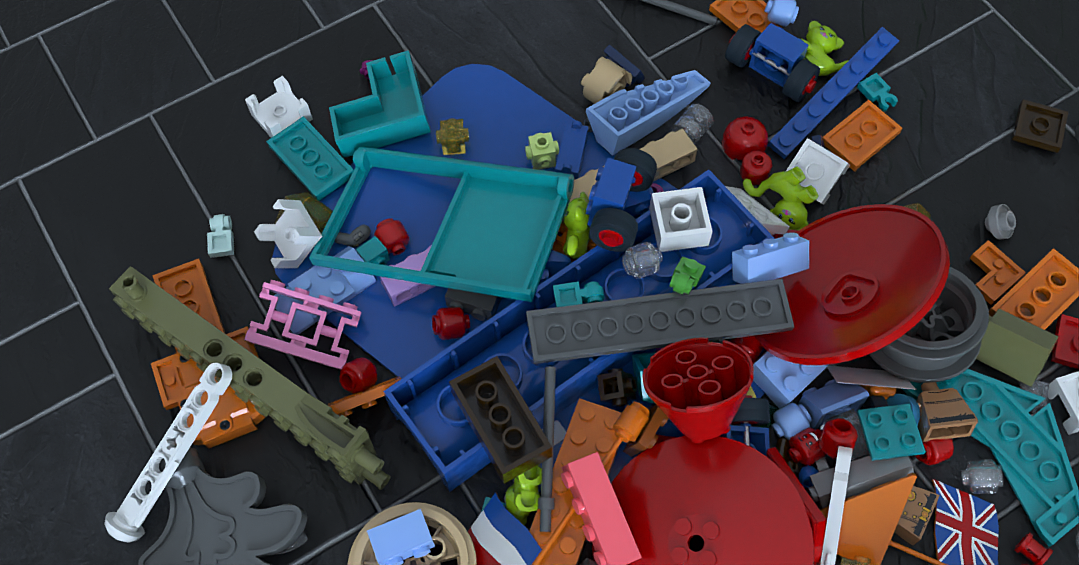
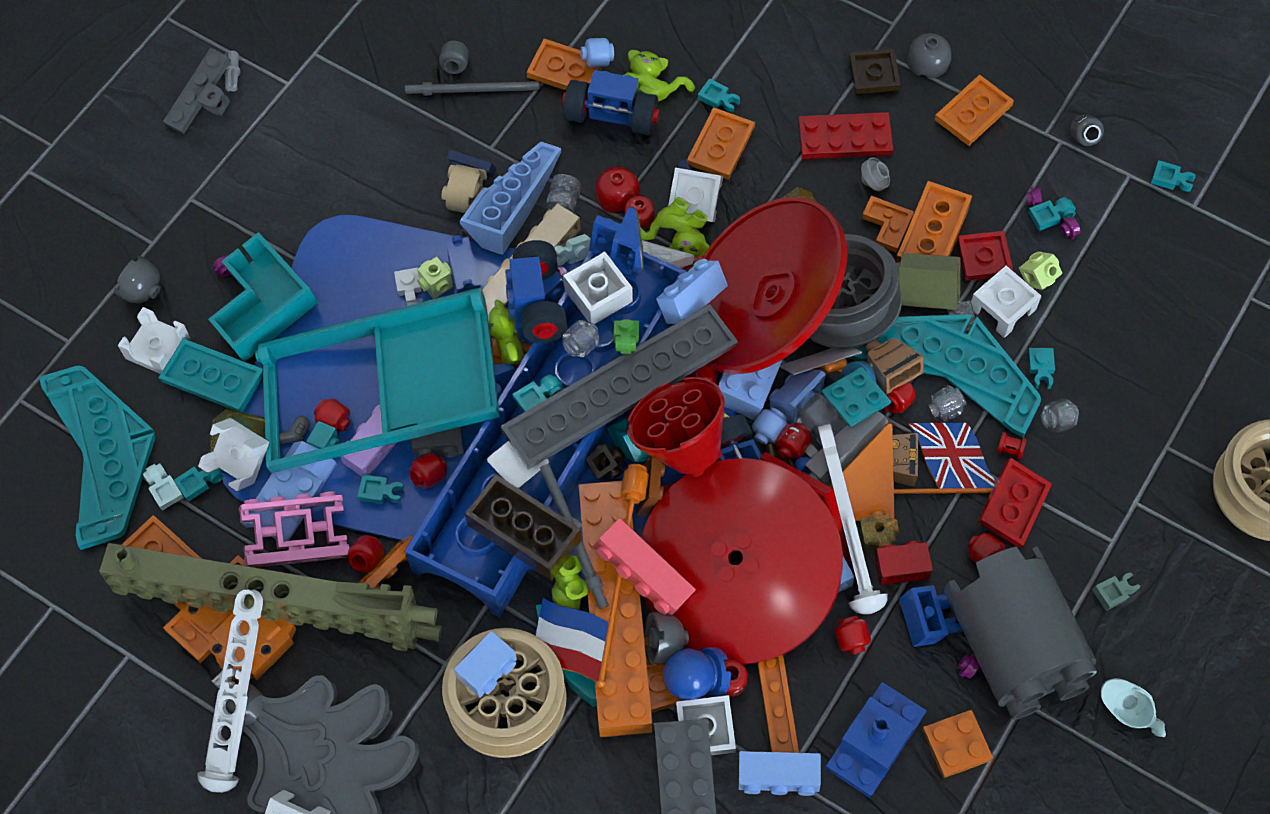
camera: 25 degrees left, 0 degrees up
(198, 188) = (113, 449): none -> teal wing
(247, 245) = (194, 483): none -> teal plate
(291, 52) = (138, 281): none -> dark grey cylinder
(398, 319) = (375, 489): none -> teal plate
(452, 136) = (342, 298): clear yellow brick -> none
(515, 148) = (407, 284): none -> white plate
(519, 354) = (511, 467): none -> white sticker
(678, 177) = (574, 251): none -> light aqua plate
(720, 183) = (619, 241): none -> blue piece
(832, 93) = (678, 113): blue plate -> none
(836, 434) = (811, 418): red head -> none
(986, 174) = (845, 135): none -> red plate

